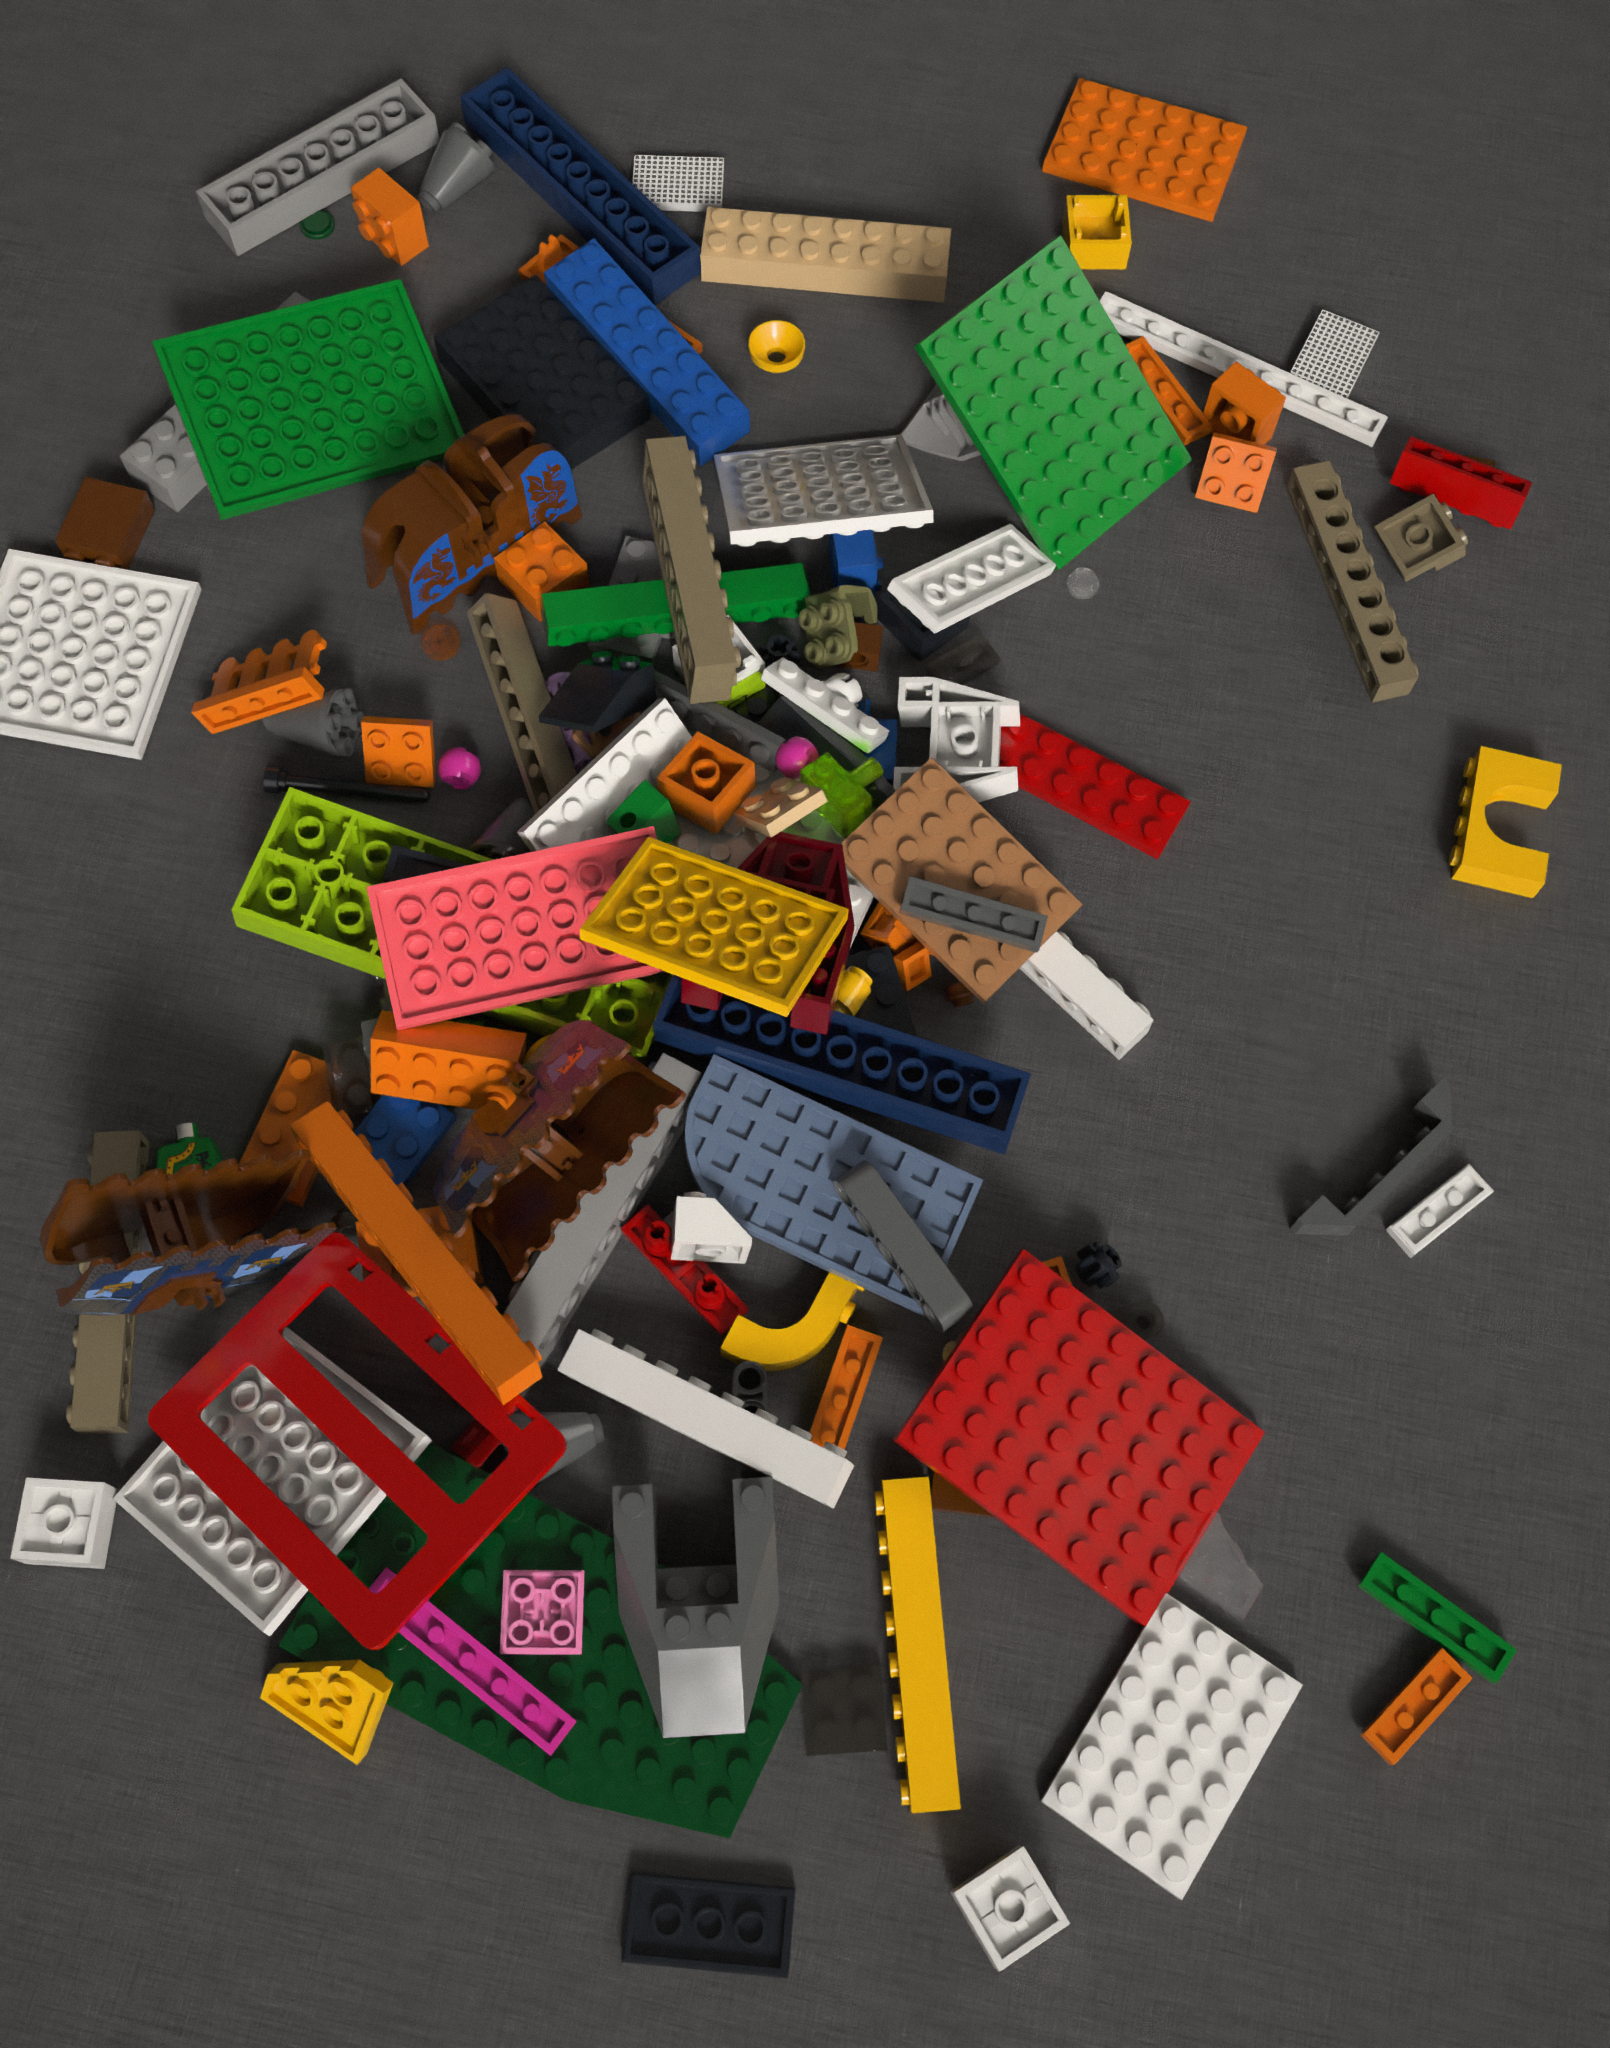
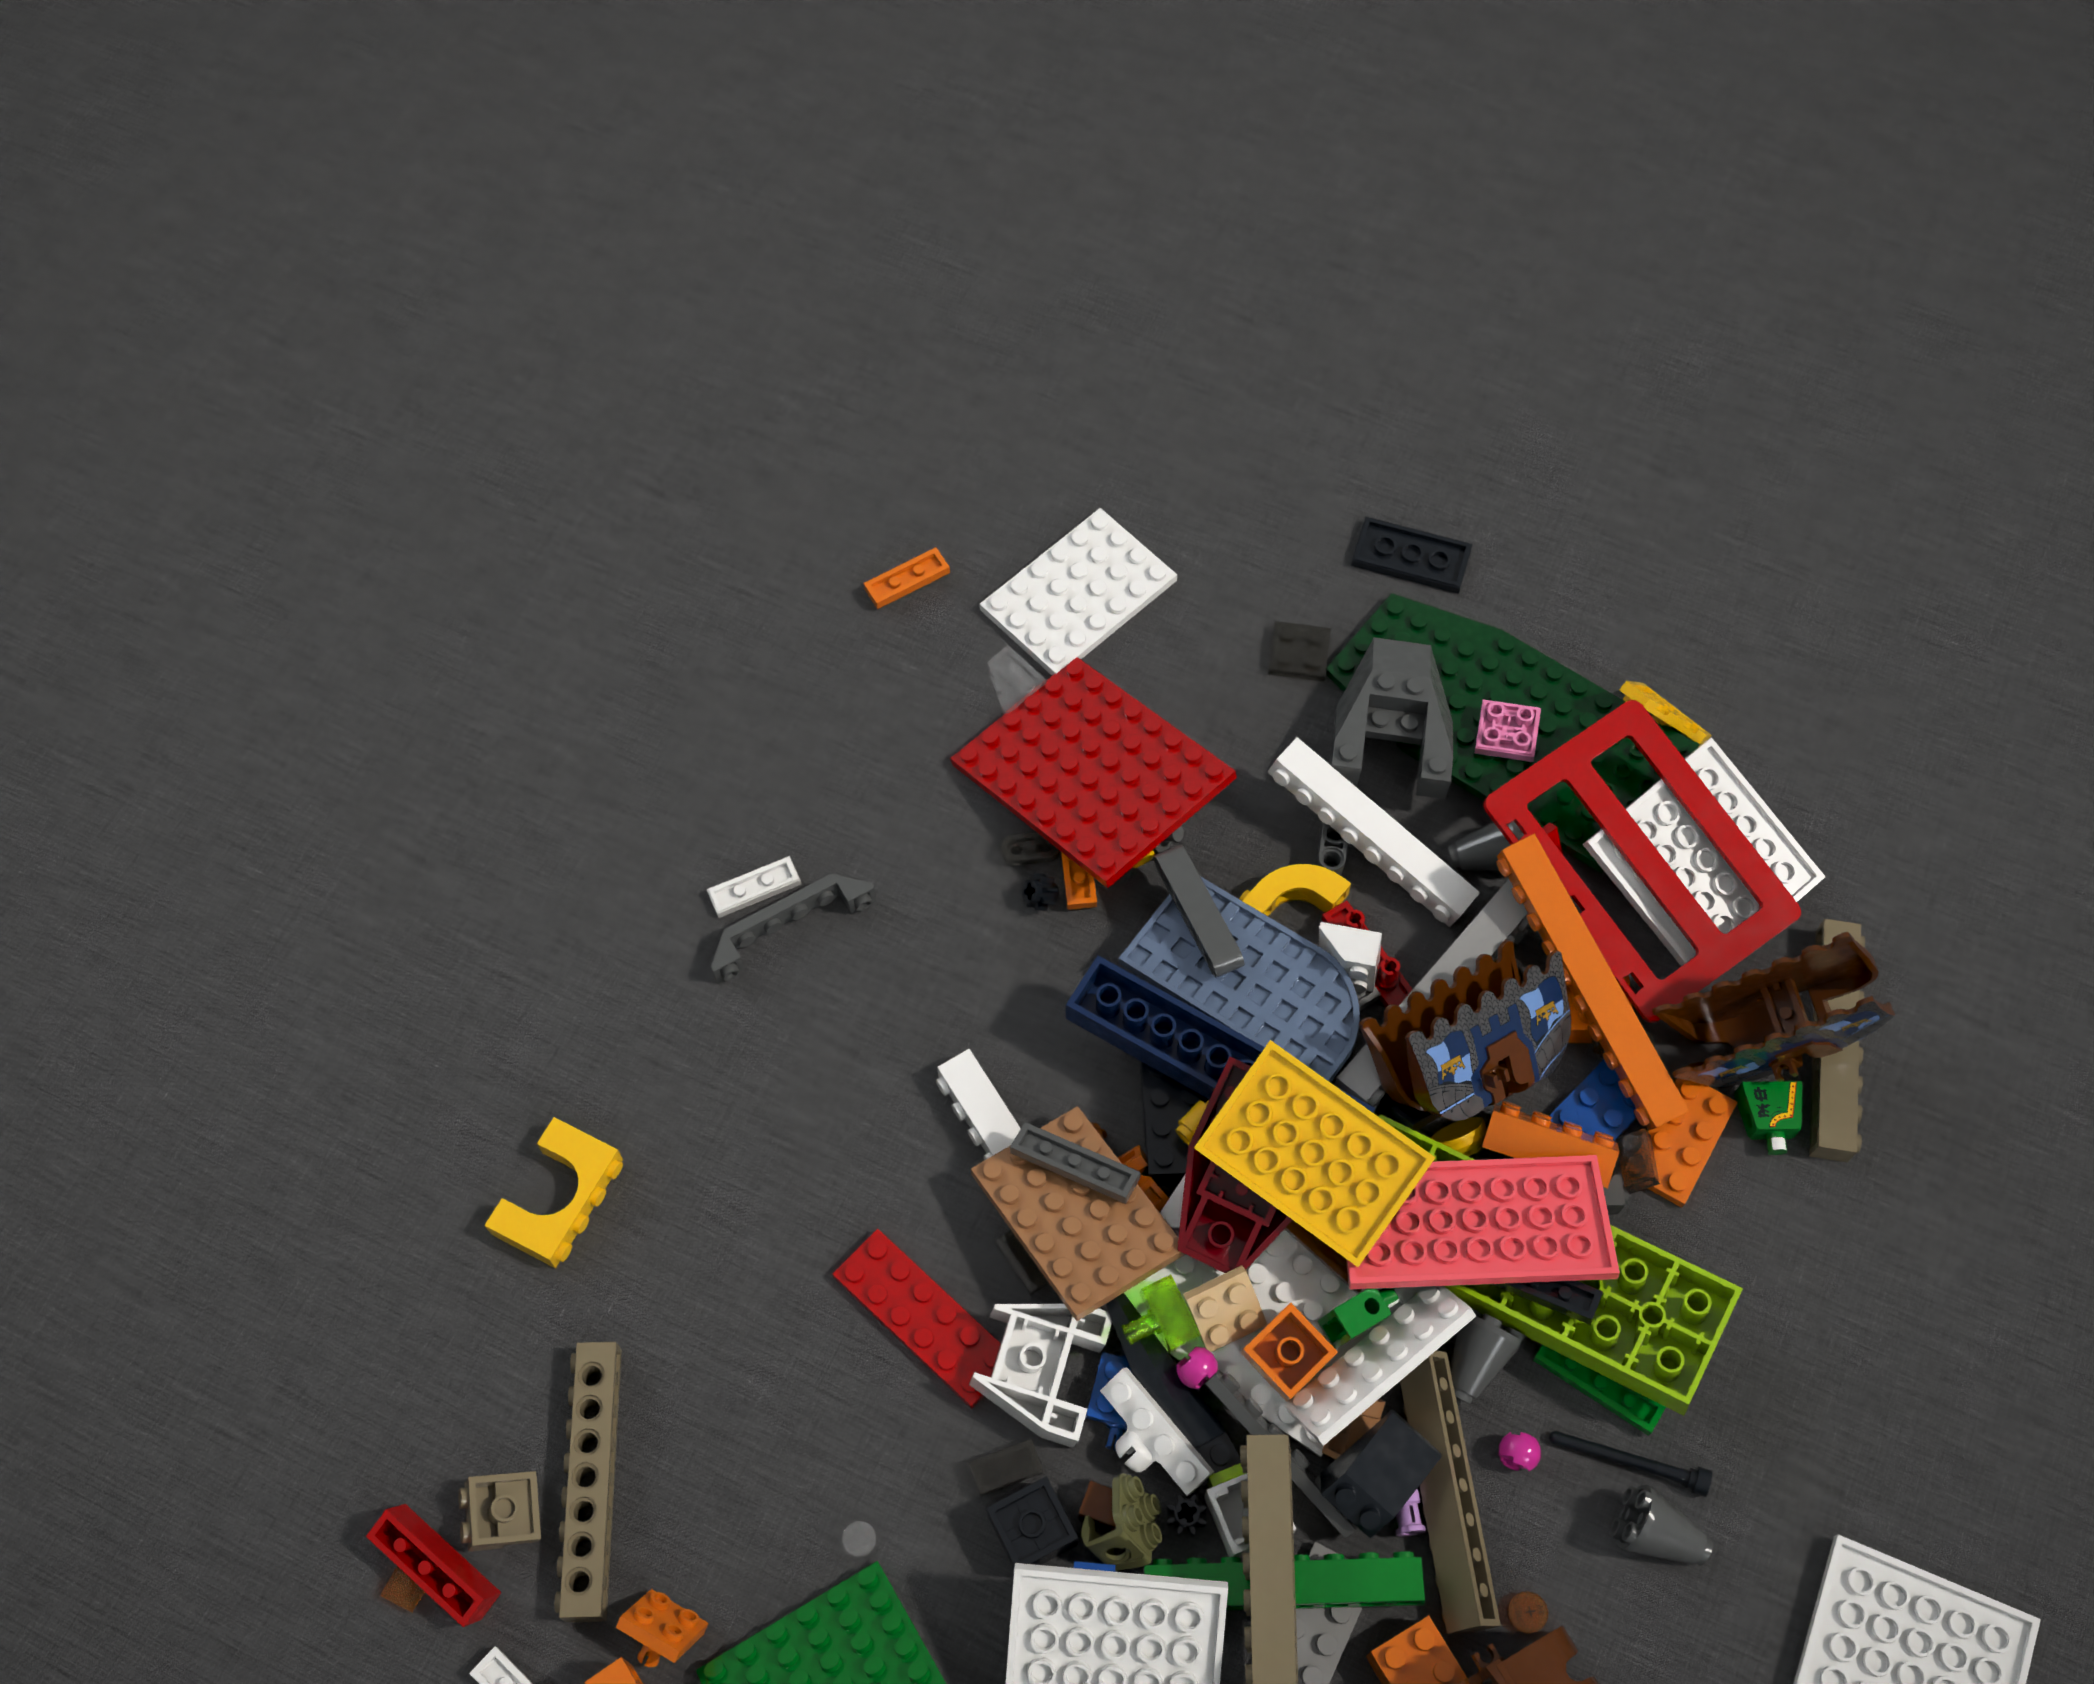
camera: 165 degrees left, 5 degrees down
(64, 1523) = (1860, 862): white container -> none
(262, 697) = (1698, 1578): orange fence -> none
(398, 751) = (1577, 1475): orange plate -> none
(484, 1674) = (1557, 700): dark pink plate -> none
(845, 1387) = (1262, 839): orange plate -> none
(919, 1646) = (1241, 671): yellow brick -> none
(971, 578) = (978, 1536): white plate -> none
(1009, 1907) = (1215, 518): white container -> none
(1437, 1618) = (872, 624): green plate -> none

